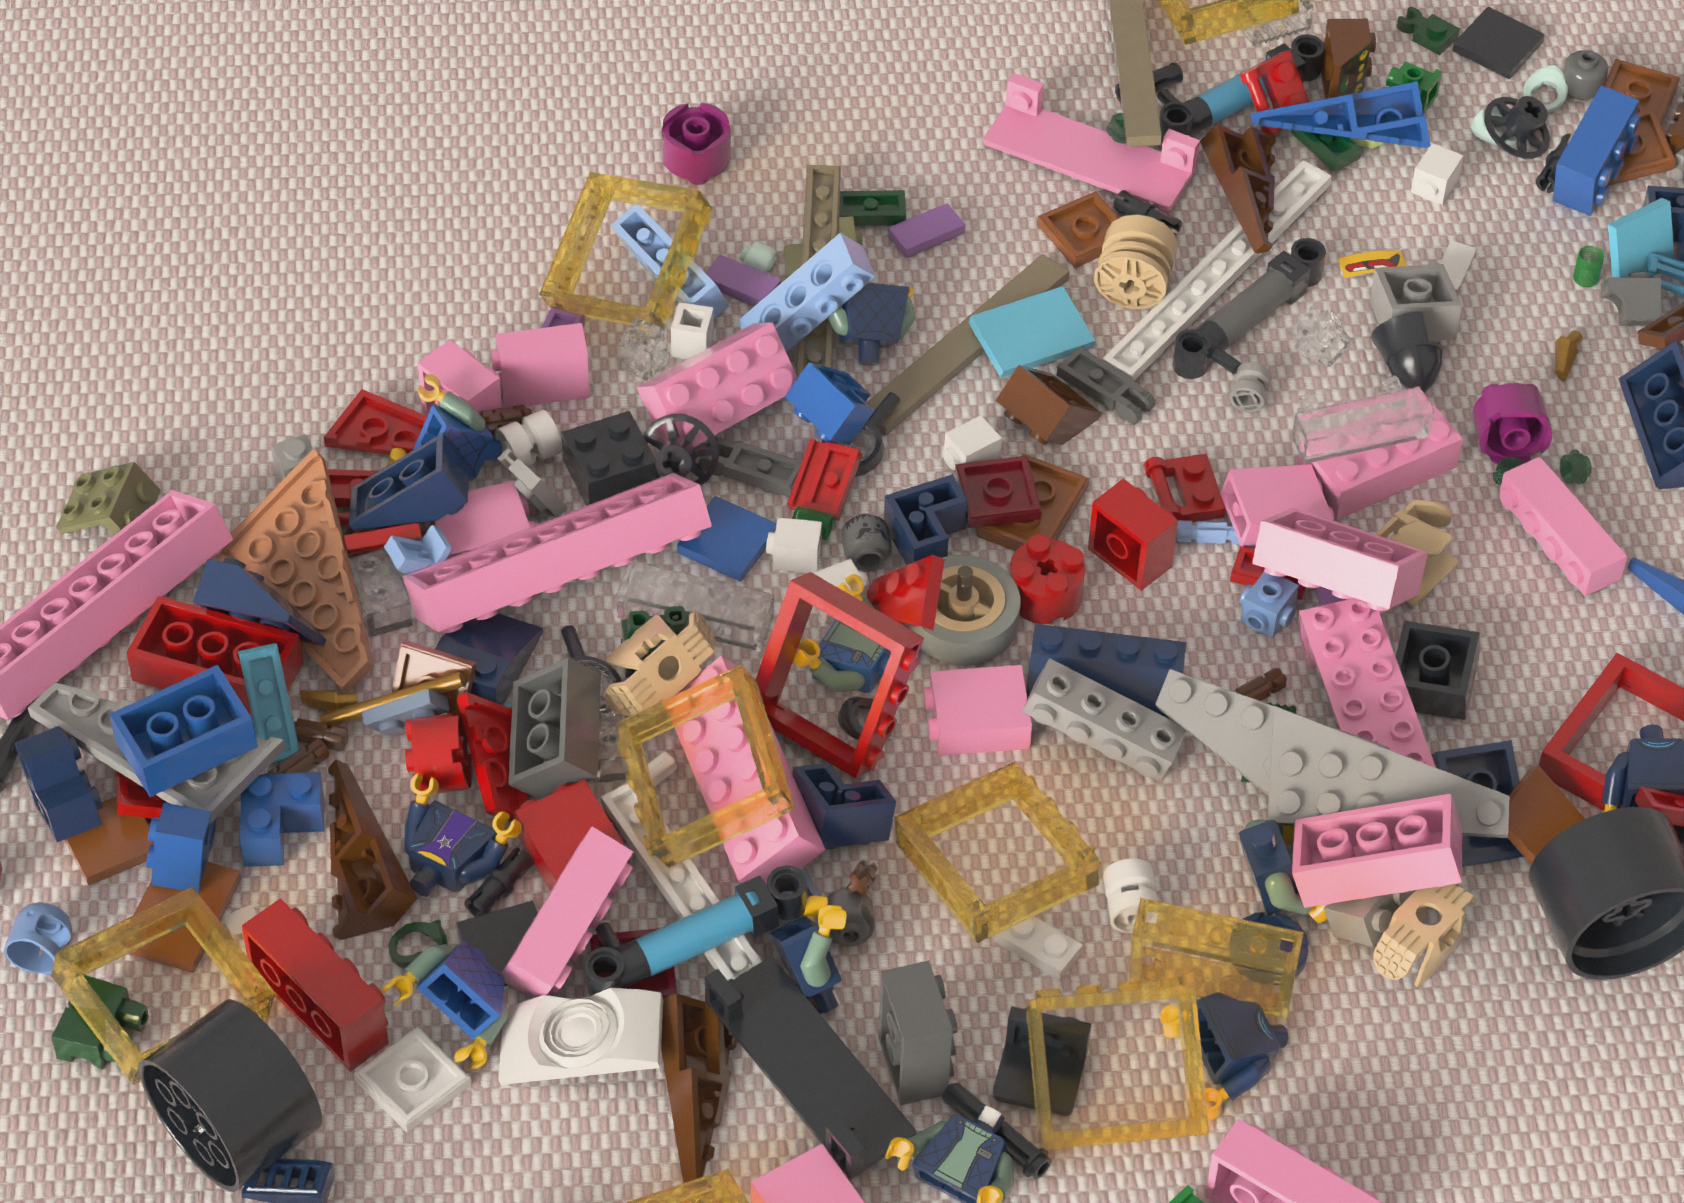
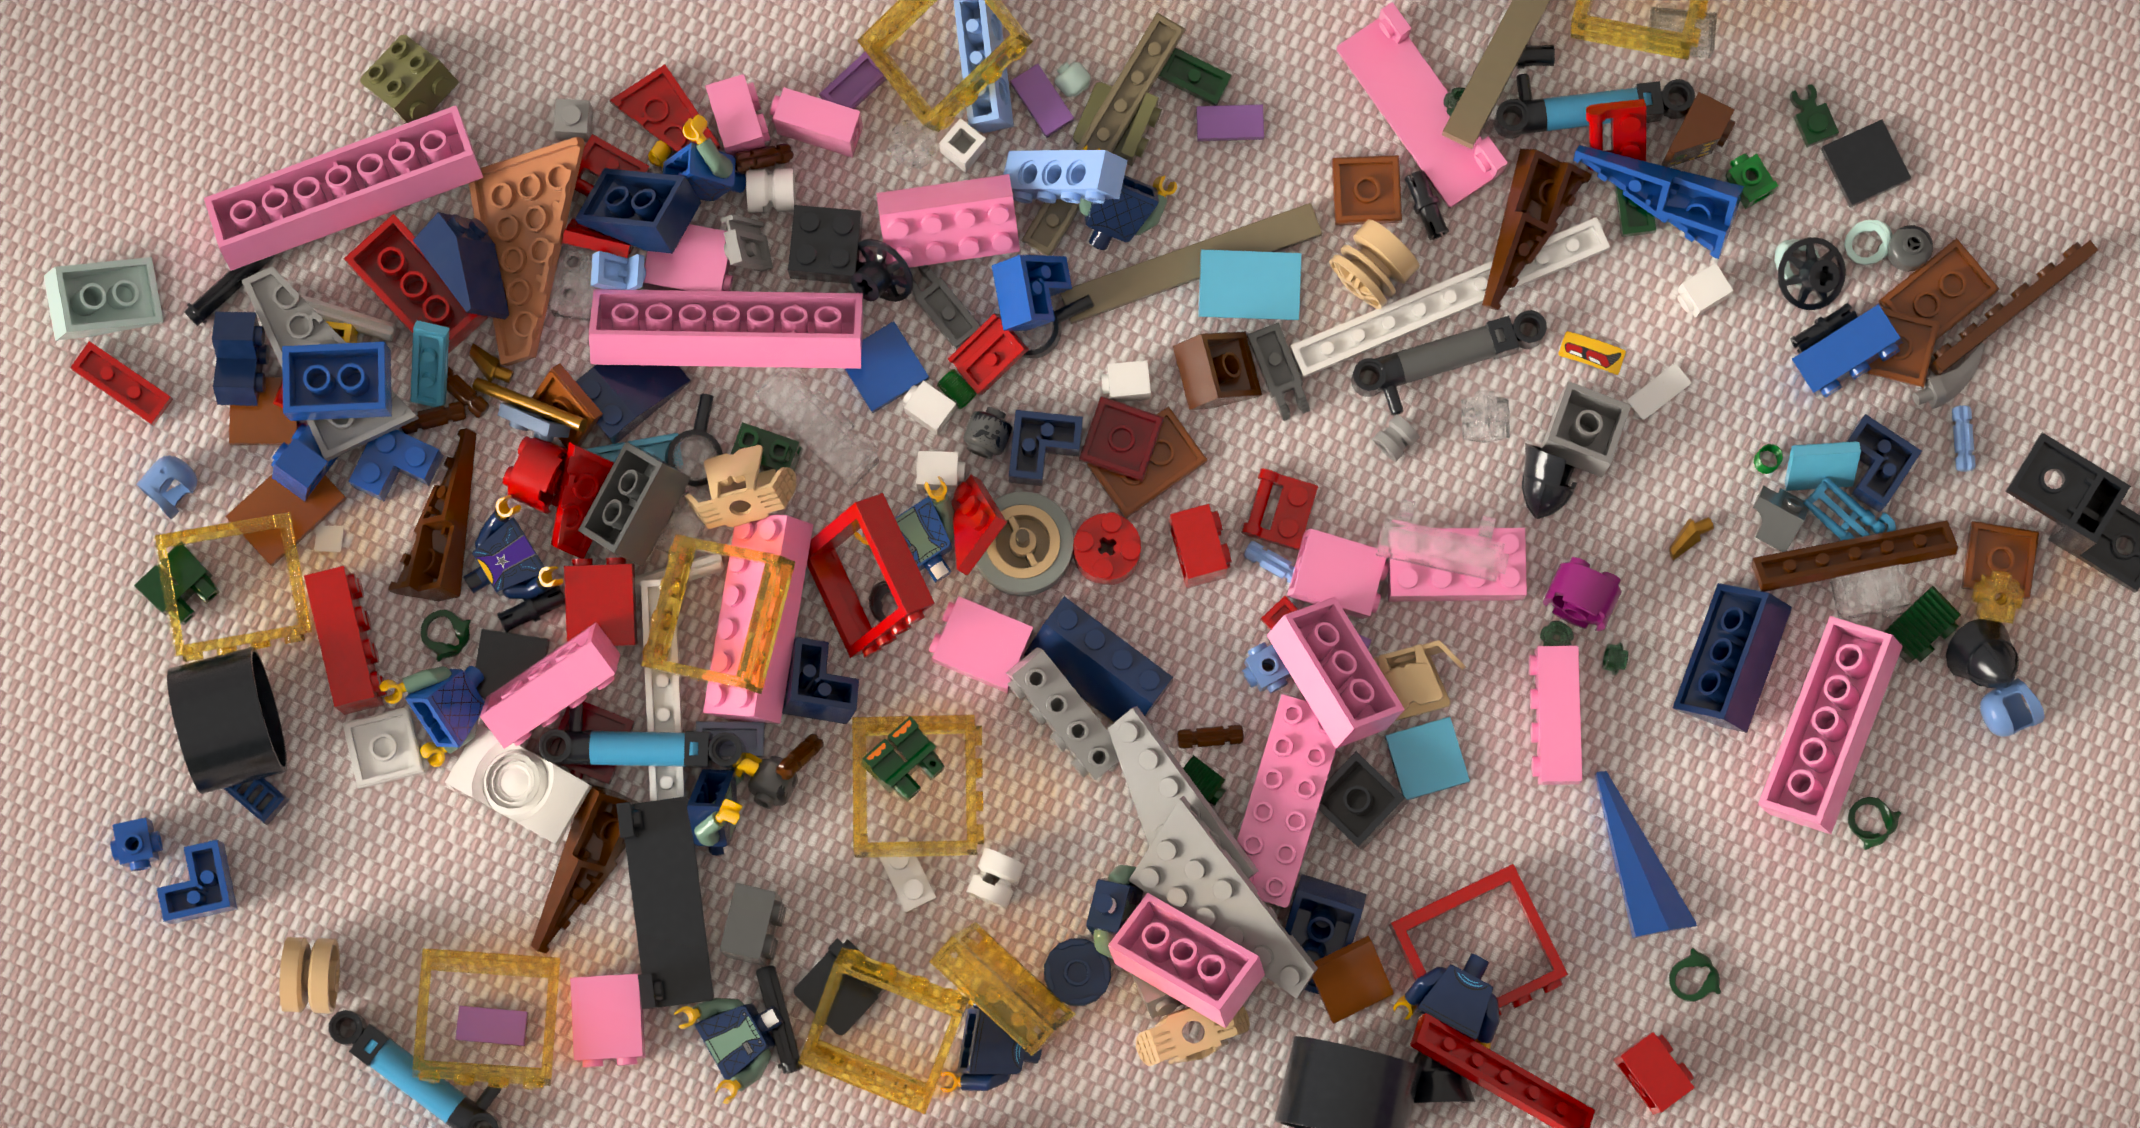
camera: 30 degrees right, 30 degrees up
(968, 814) = (900, 756): none -> dark green hips
(1472, 609) = (1427, 758): none -> medium azure tile

